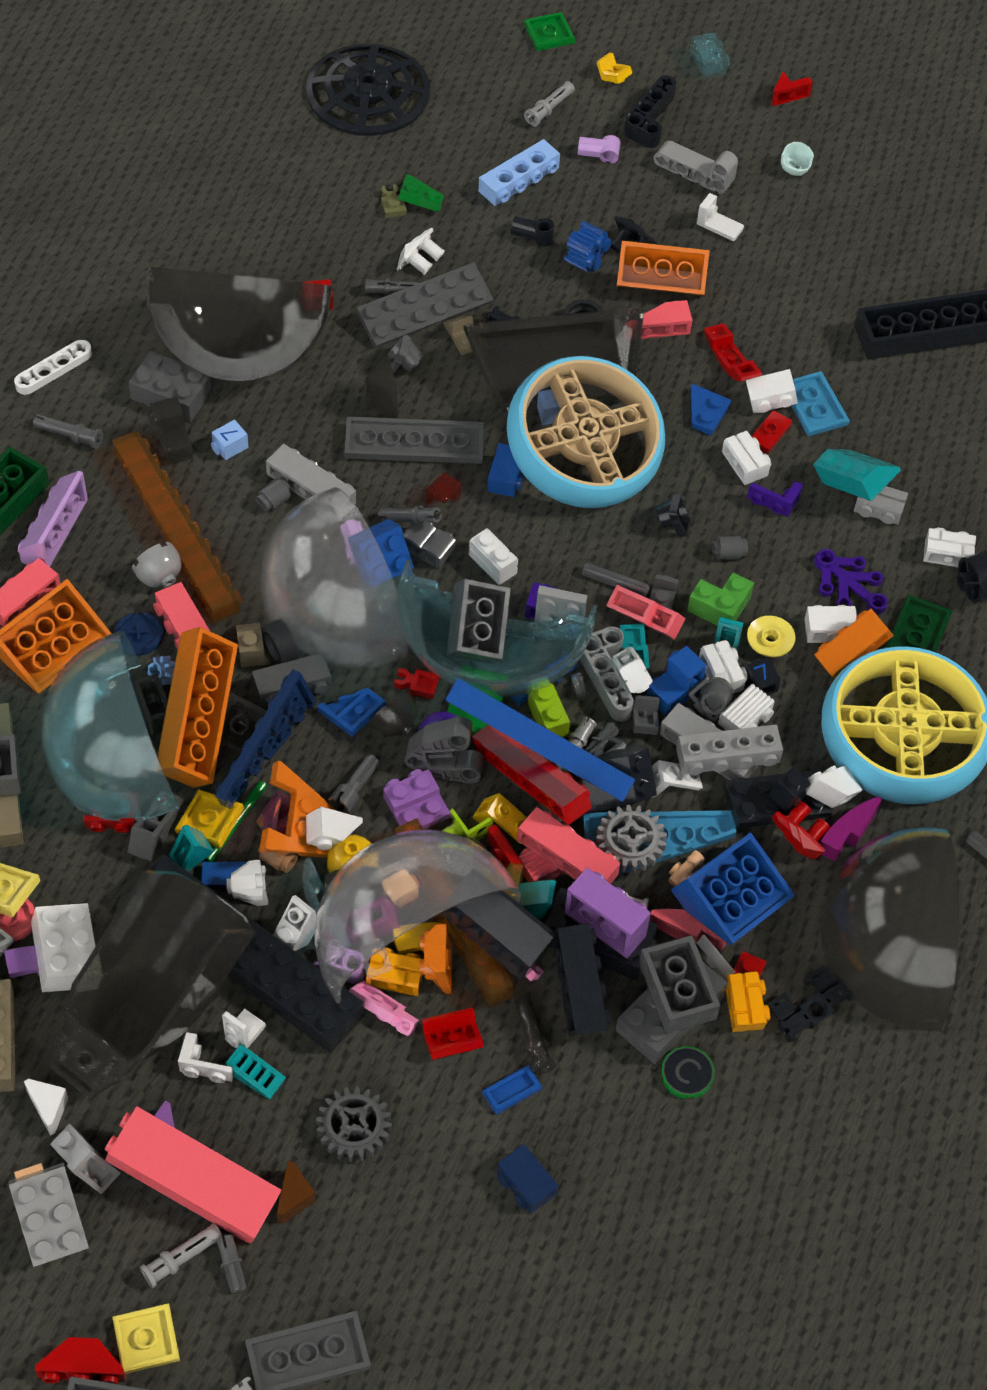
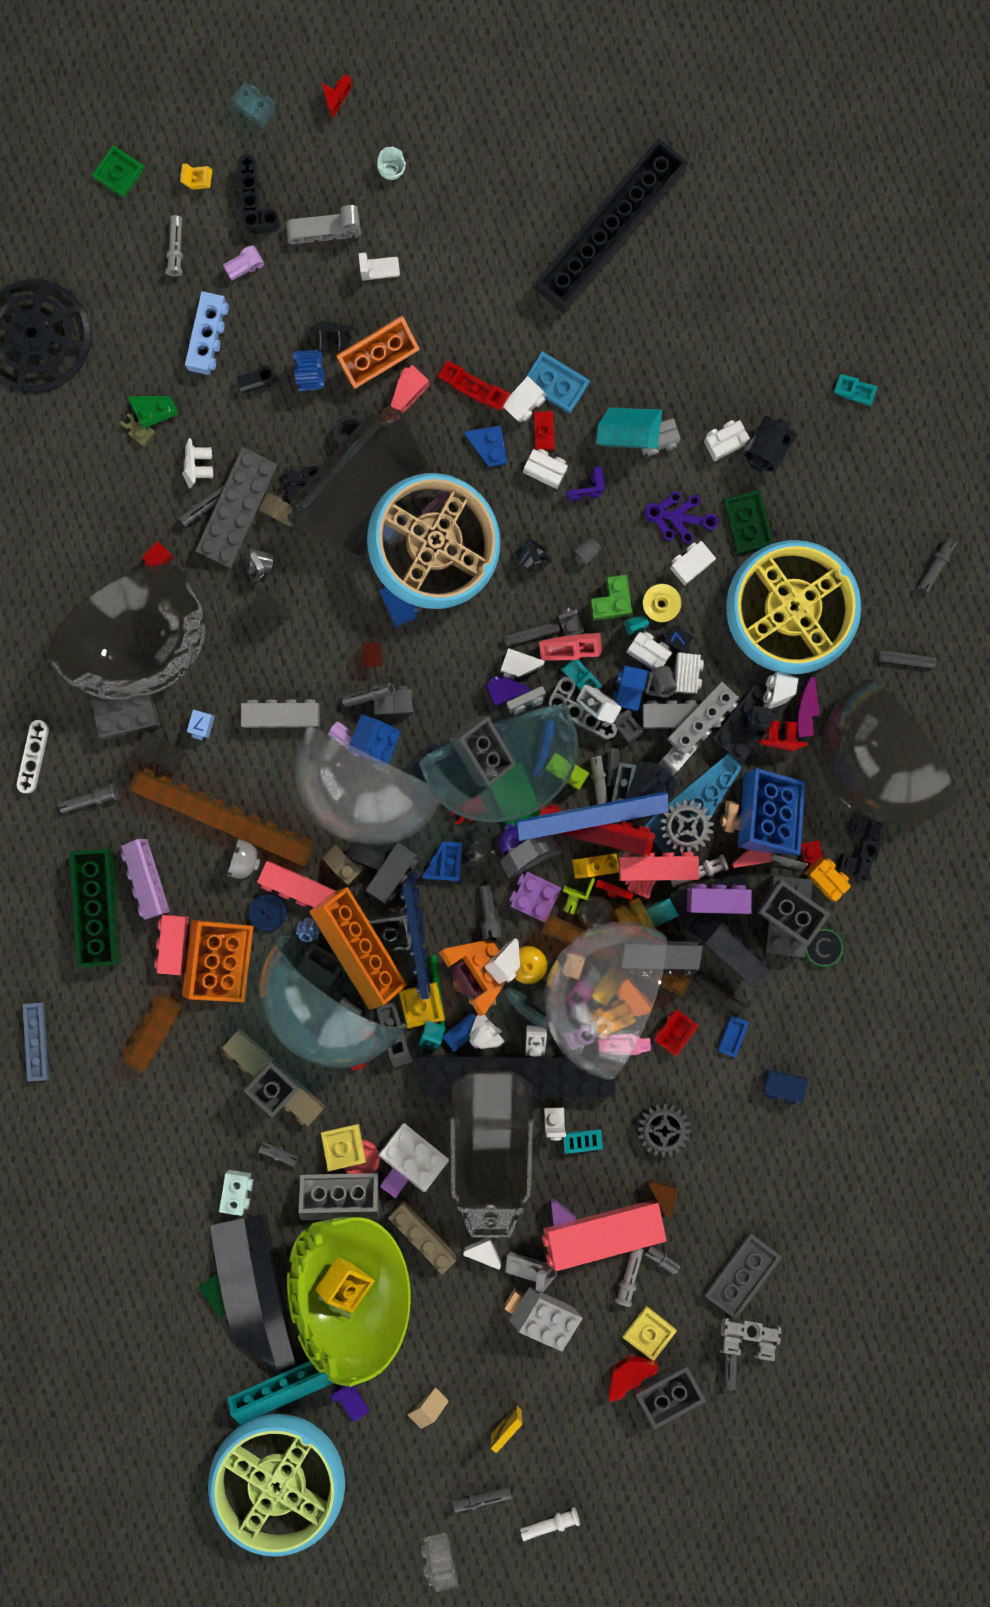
camera: 30 degrees left, 30 degrees up
(192, 1067) = (538, 1159): white bracket -> none
(273, 494) = (264, 743): dark grey brick -> none
(414, 440) = (319, 626): dark grey plate -> none
(493, 556) = (443, 681): white brick -> none
(581, 583) = (519, 664): none -> white slope
(852, 642) = (721, 573): orange brick -> none

